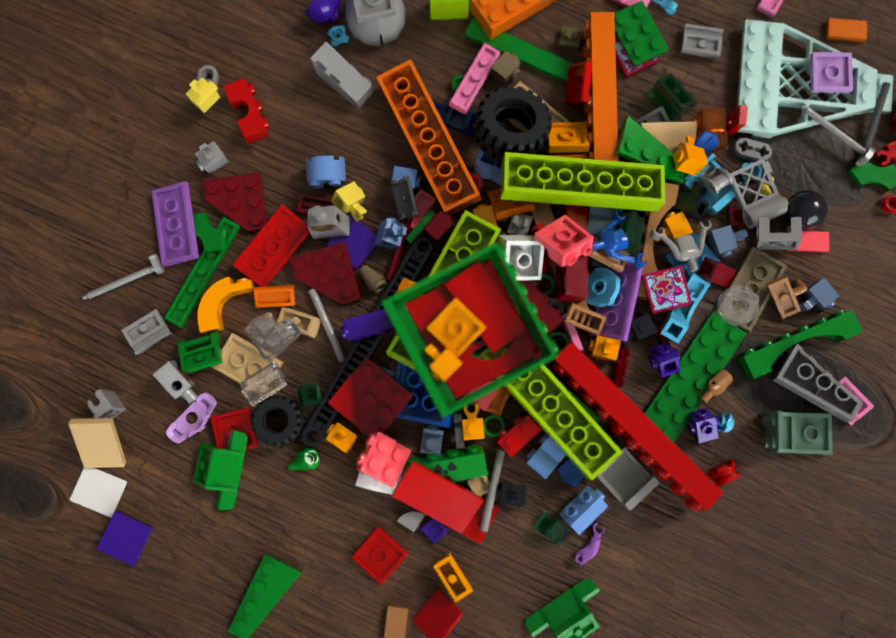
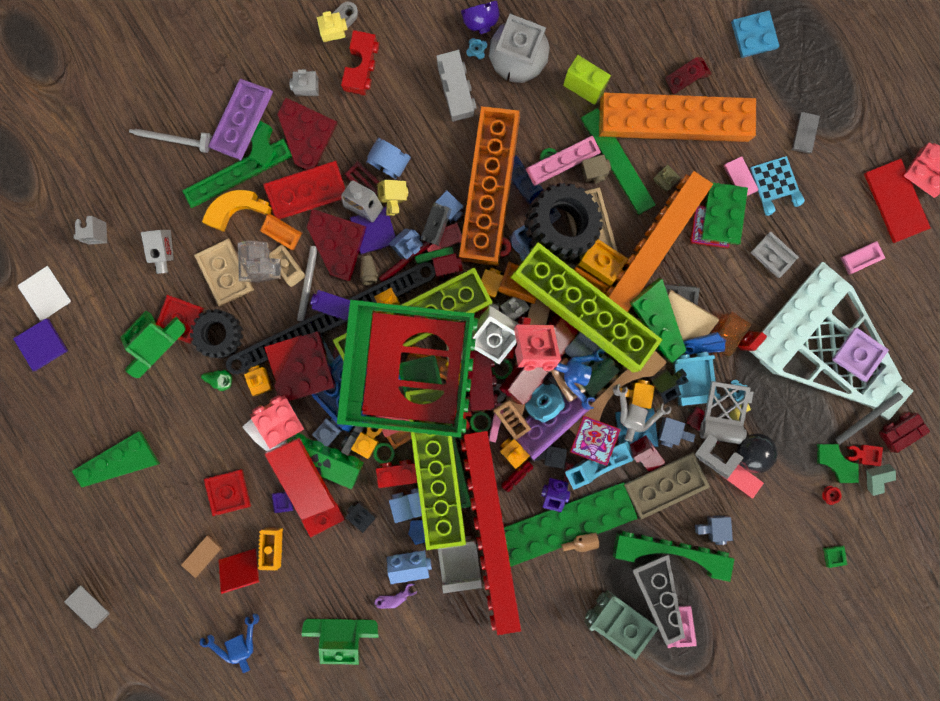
camera: 35 degrees right, 5 degrees up
(97, 442) = (65, 256): tan tile -> none
(146, 332) = (161, 192): light grey plate -> none
(181, 429) = (139, 287): lavender piece -> none
(201, 357) = (190, 242): green plate -> none
(263, 383) = (224, 297): clear brick -> none
(309, 395) = (254, 330): clear green brick -> none
(411, 520) = (269, 482): light grey tile -> none
(444, 364) = (370, 381): light orange brick -> none
(456, 327) = (399, 359): light orange plate -> none
(479, 485) = (341, 493): tan tile -> none
(488, 304) = (434, 357): red tile -> none
(492, 491) = (347, 503): light grey bar -> none
(551, 528) = (374, 563): clear green brick -> none
(578, 82) = (644, 223): red tile -> none
(672, 96) = (715, 286): clear green brick -> none
(689, 158) = (689, 346): light orange brick -> none
(703, 425) = (549, 566): dark purple brick -> none
(716, 179) = (699, 378): light grey piece -> none
(724, 473) = (538, 615): red wheel -> none
(726, 422) = (568, 576): medium azure plate -> none
(747, 298) = (634, 491): clear plate -> none
(752, 149) = (753, 369): light grey beam -> none
(784, 295) = (688, 510): medium nougat plate -> none
(846, 30) = (903, 326): orange tile -> none
(866, 154) = (840, 440): light grey piece -> none

